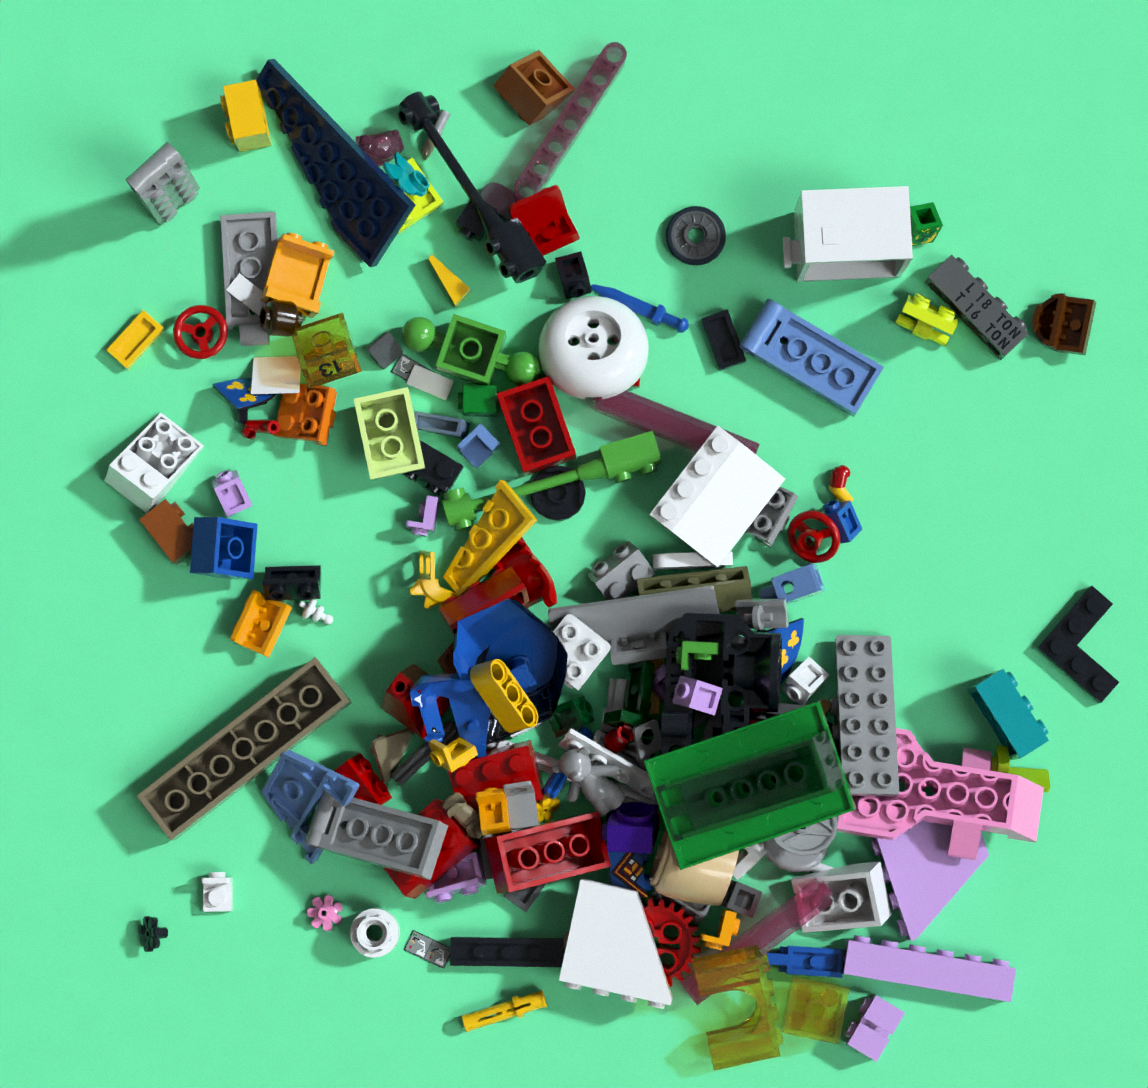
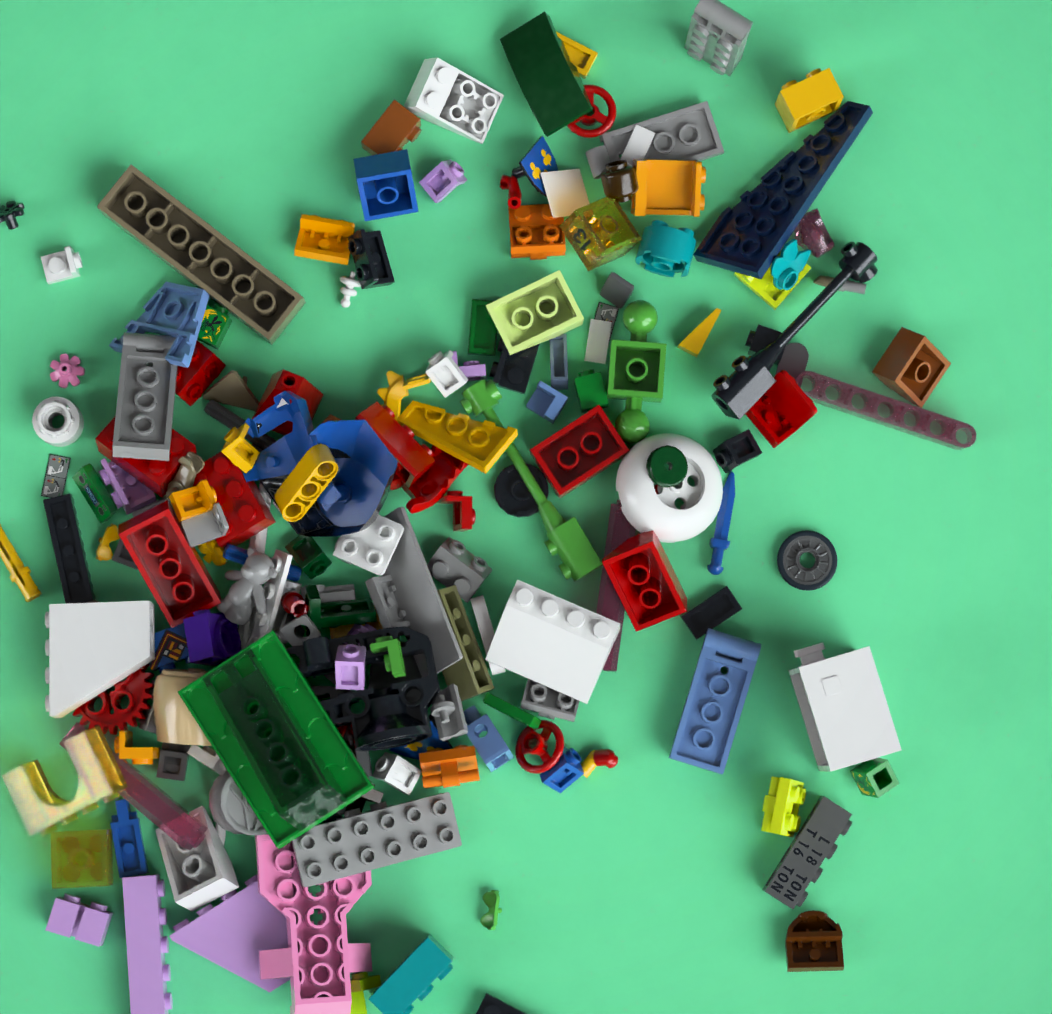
camera: 75 degrees right, 0 degrees up
(152, 364) = (546, 74): none -> dark green slope
(319, 752) = (214, 326): none -> green brick
(358, 291) = (666, 249): none -> teal brick
(389, 491) = (482, 330): none -> green tile
(426, 535) = (445, 373): none -> white bracket
(456, 912) = (95, 493): none -> green tile
(515, 917) = (104, 551): none -> yellow piece
(565, 554) = (463, 513): none -> red bracket
(575, 332) = (677, 466): none -> dark green piece
(679, 393) = (645, 581): none -> red slope
(773, 554) = (512, 711): none -> green tile
(814, 627) = (449, 766): none -> orange plate
(950, 620) = (490, 919): none -> bright green piece

